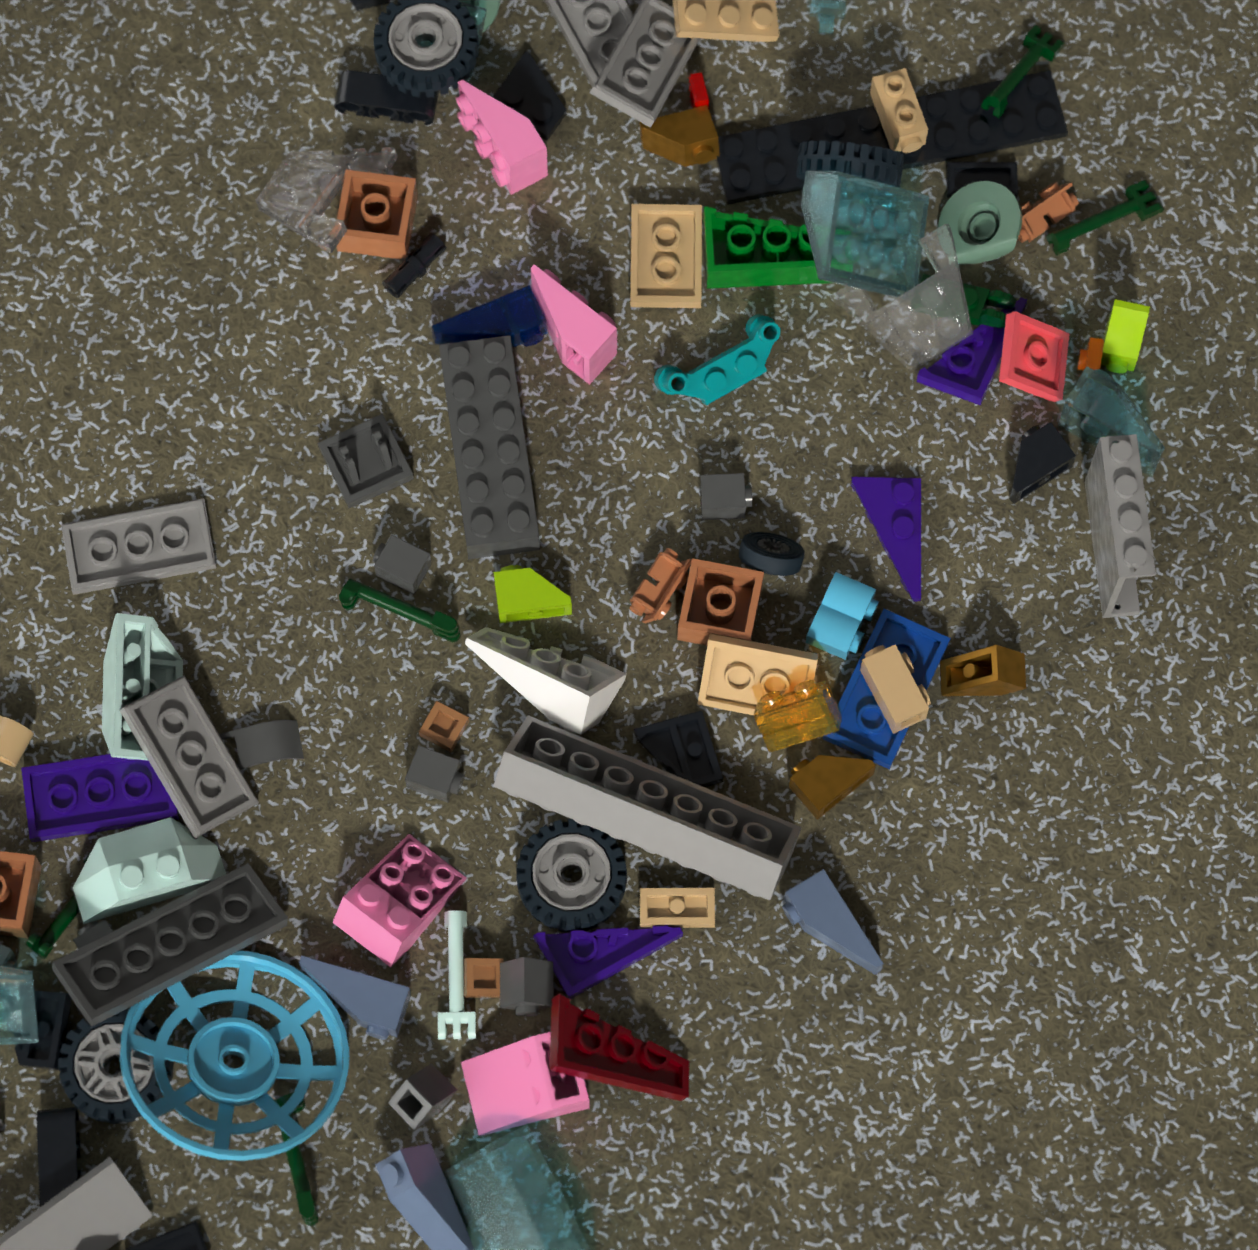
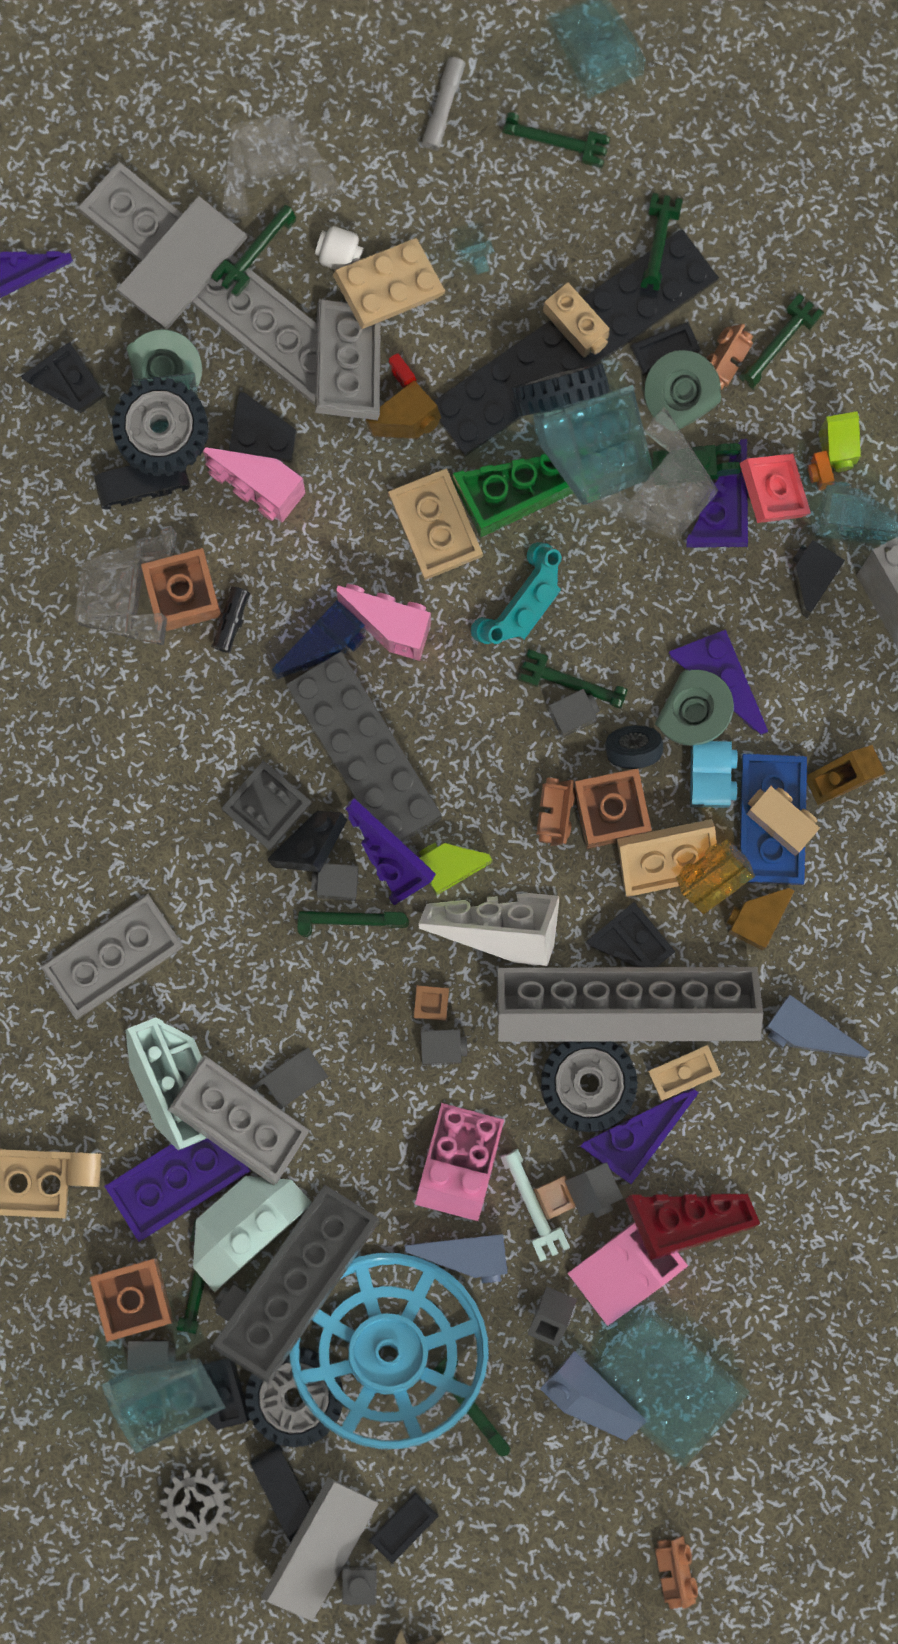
camera: 25 degrees left, 10 degrees up
(392, 514) = (310, 843): none -> black wing
(466, 554) = (392, 859): none -> dark purple wing
(774, 500) = (614, 698): none -> dark green hinge
(854, 542) = (696, 708): none -> sand green hat

